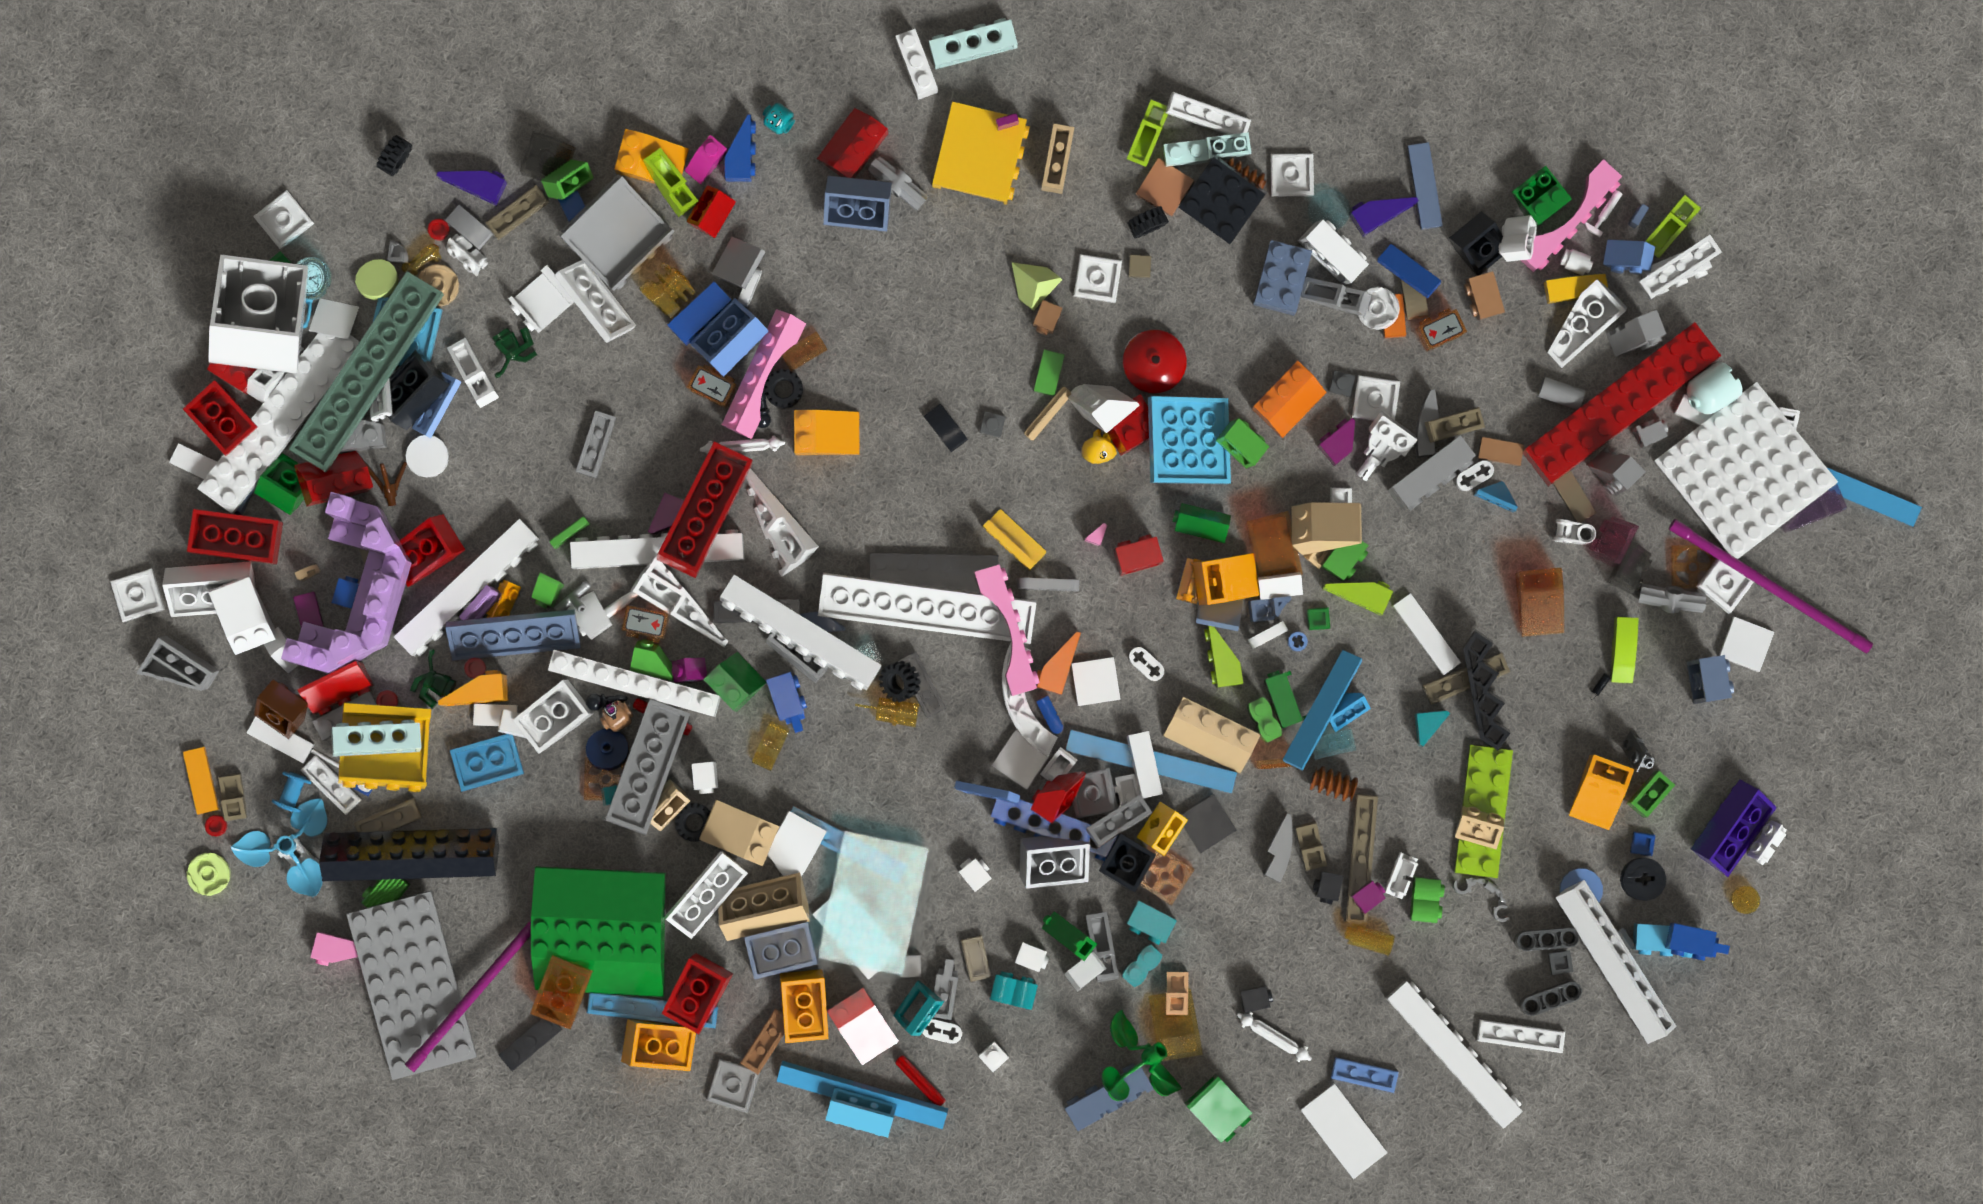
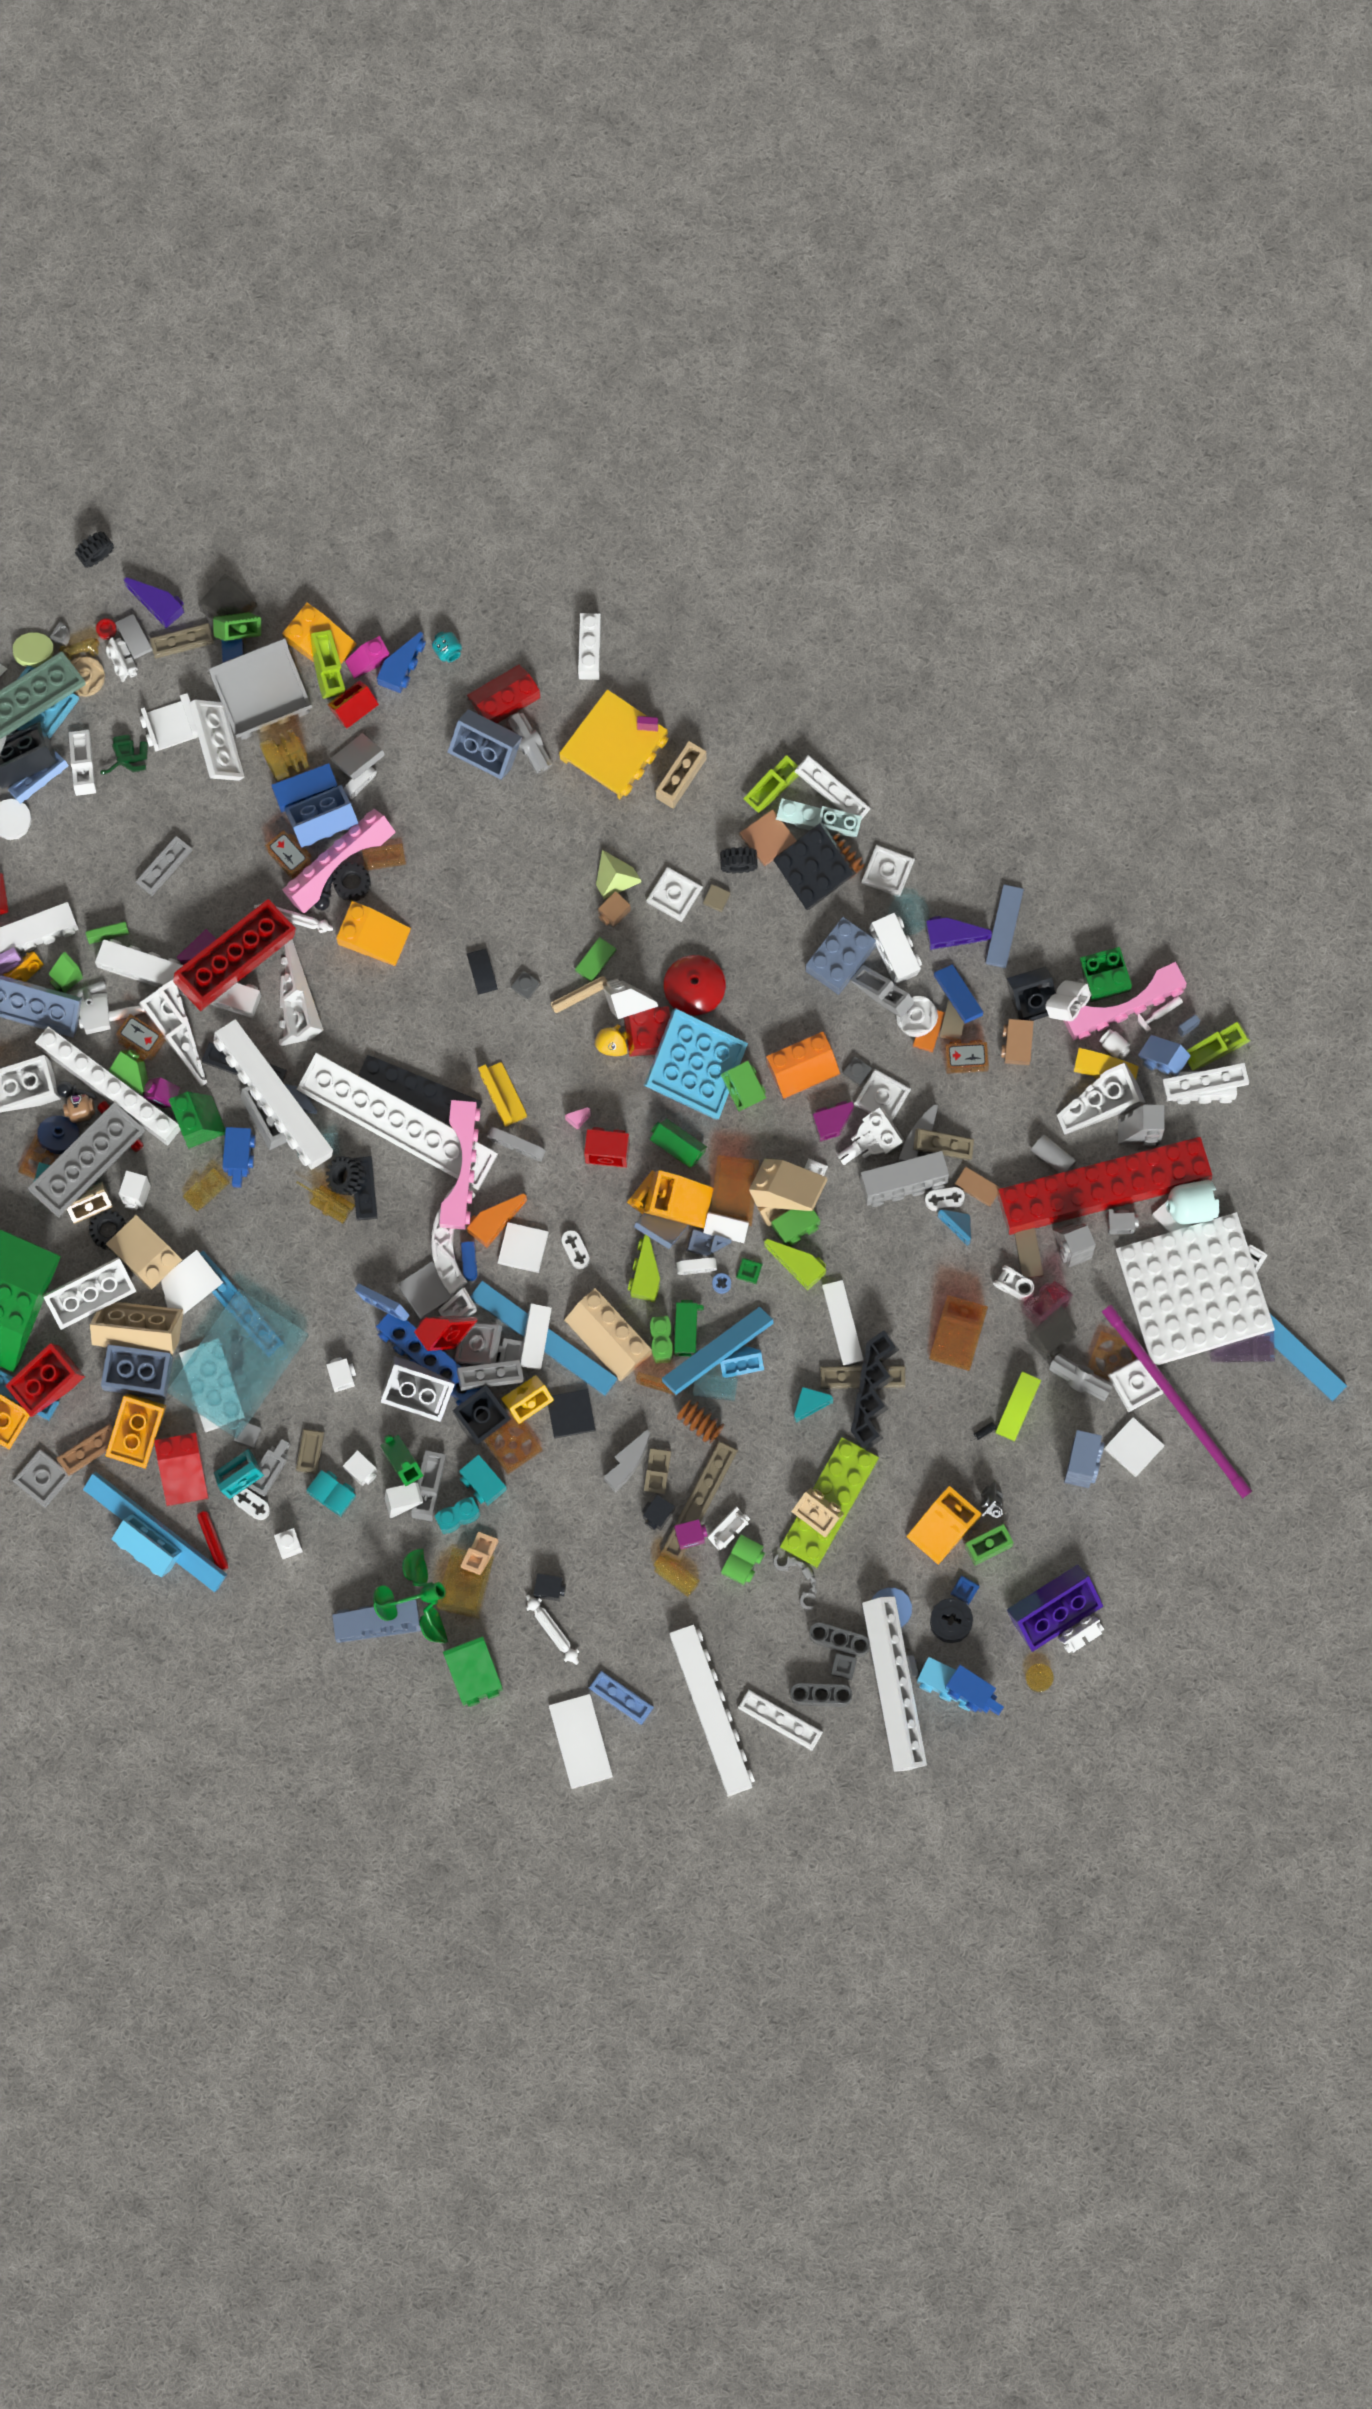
camera: 30 degrees right, 10 degrees down
(985, 47) = (656, 656): light aqua brick -> none

